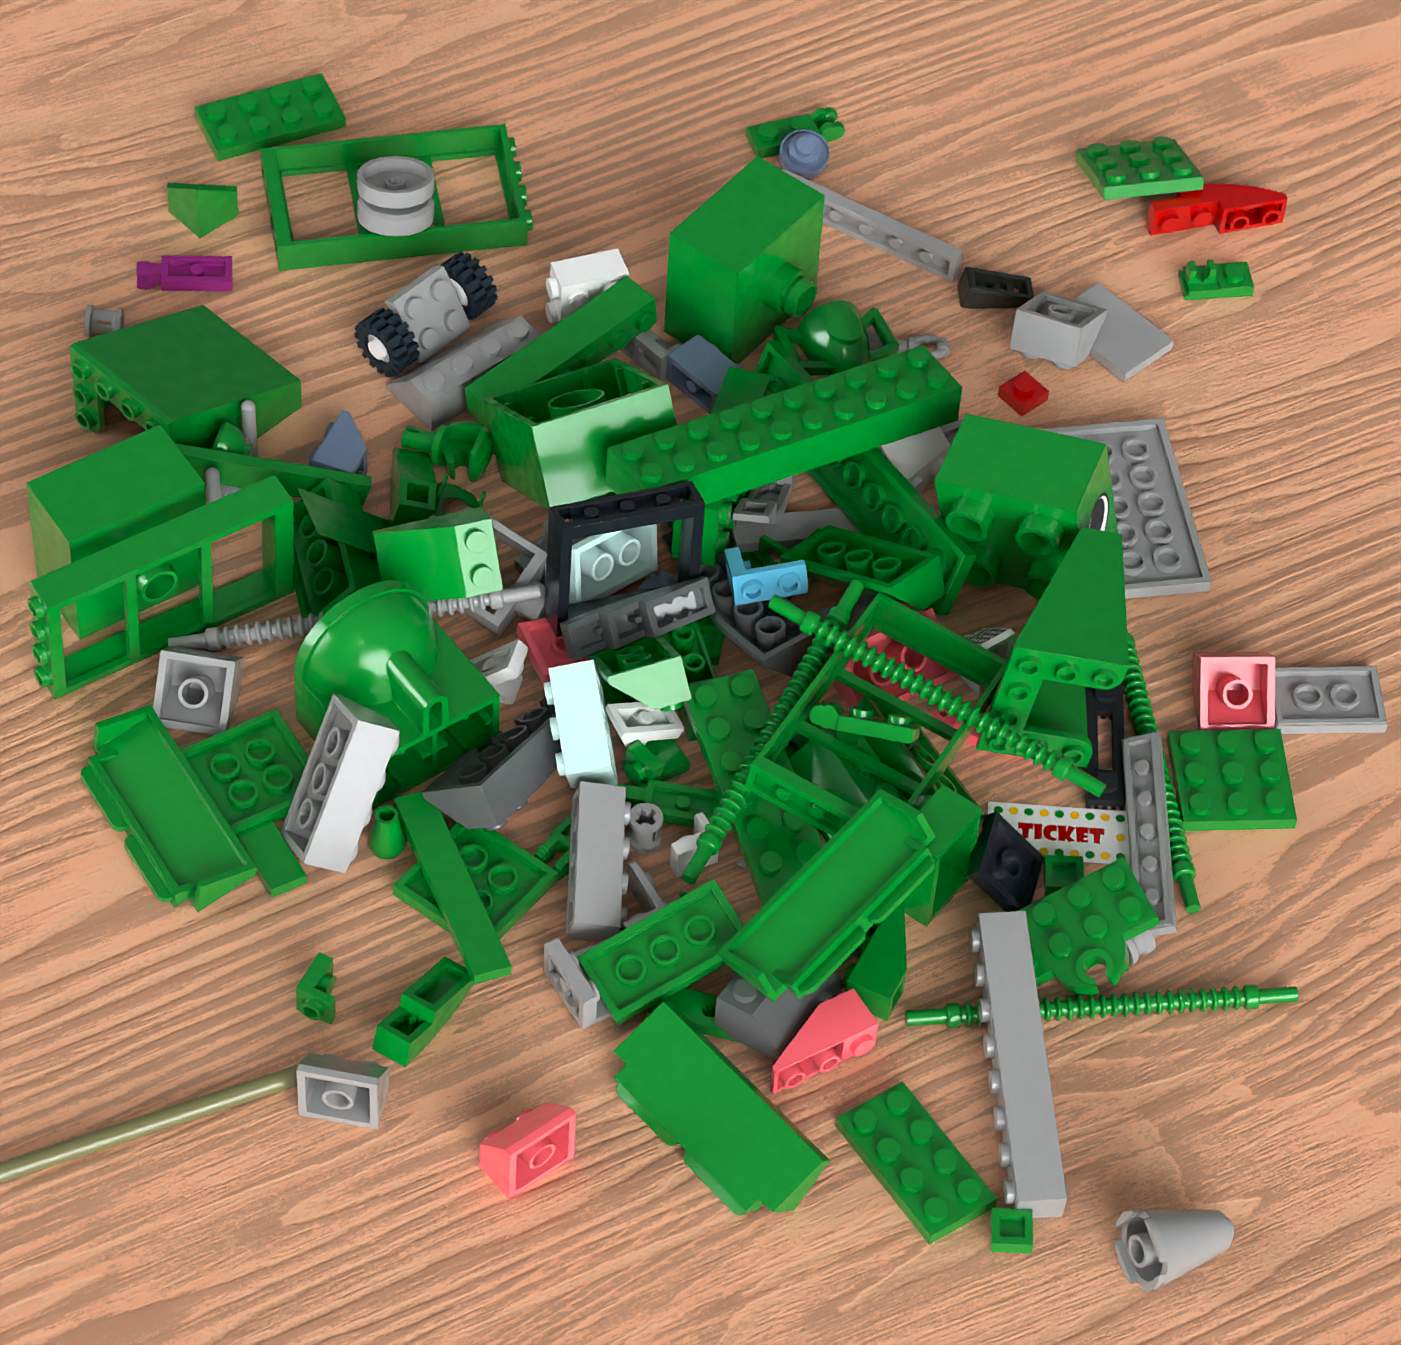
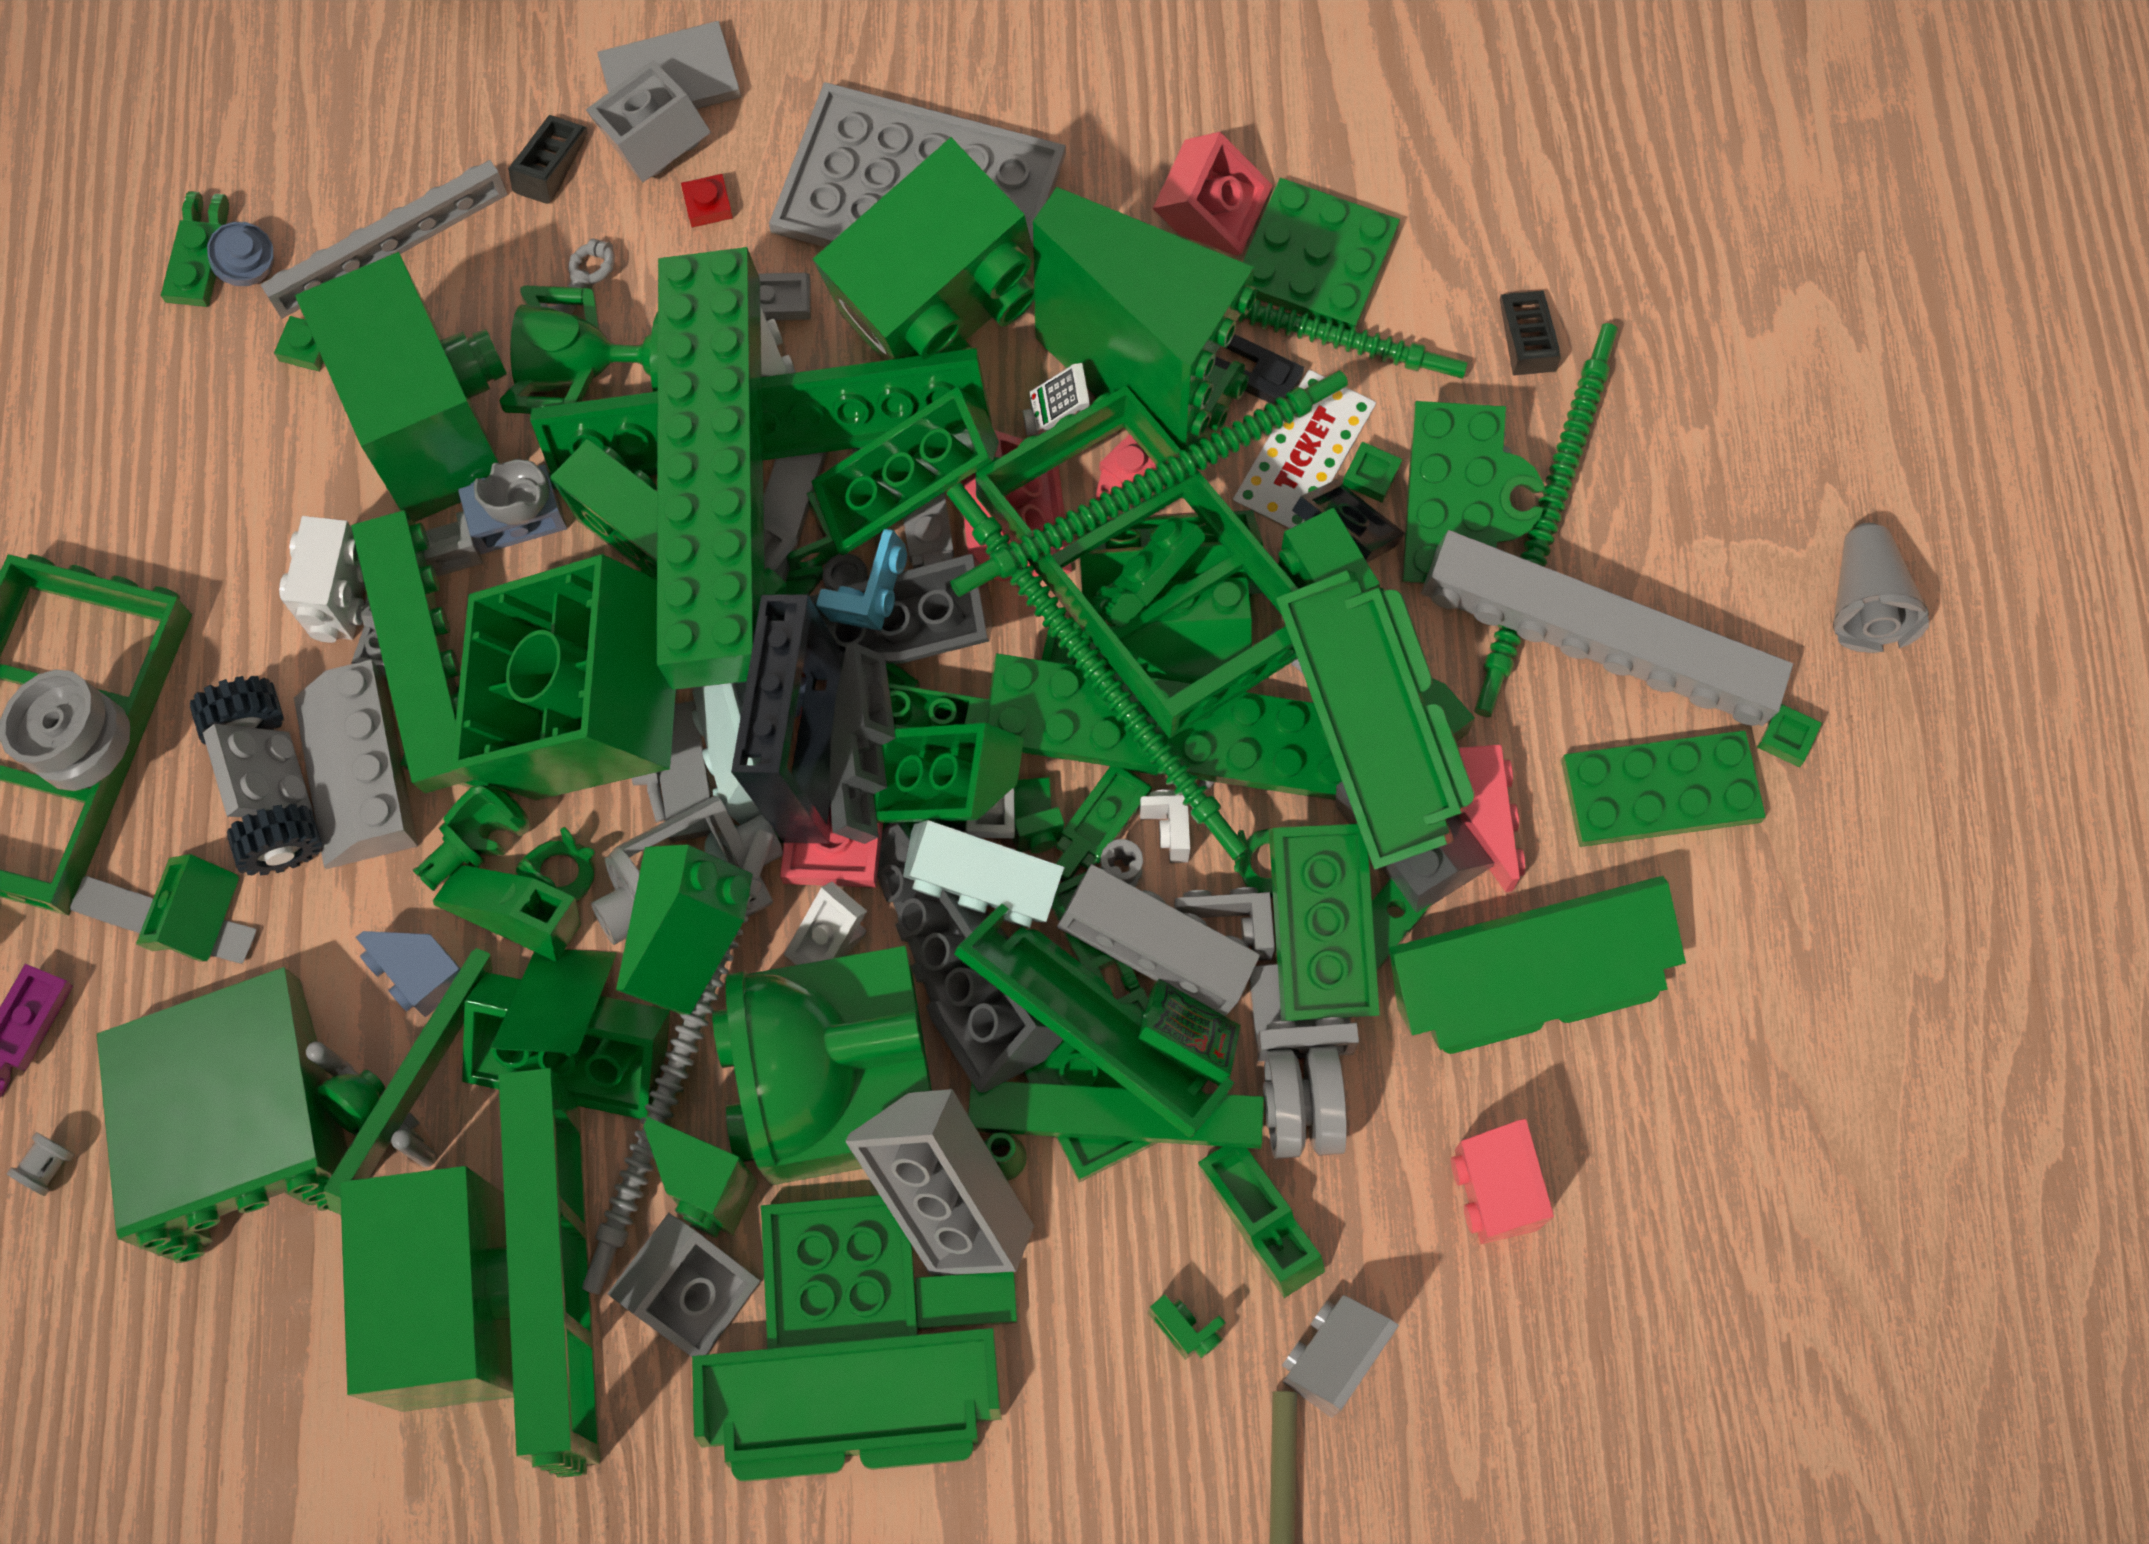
camera: 60 degrees left, 20 degrees up
(269, 652) = (701, 1179): none -> green slope
(302, 316) = (130, 909): none -> light grey sticker
(317, 325) = (188, 907): none -> green panel
(506, 826) = (1088, 1018): none -> green slope
(520, 991) = (1299, 1102): none -> light grey wheel
(535, 901) = (1189, 1032): none -> green tile
(708, 357) = (513, 491): none -> light grey hair
(1149, 825) = (1363, 364): light grey tile -> none
(1241, 960) = (1523, 360): none -> pearl dark grey slope
(1329, 700) = (1262, 110): light grey tile -> none

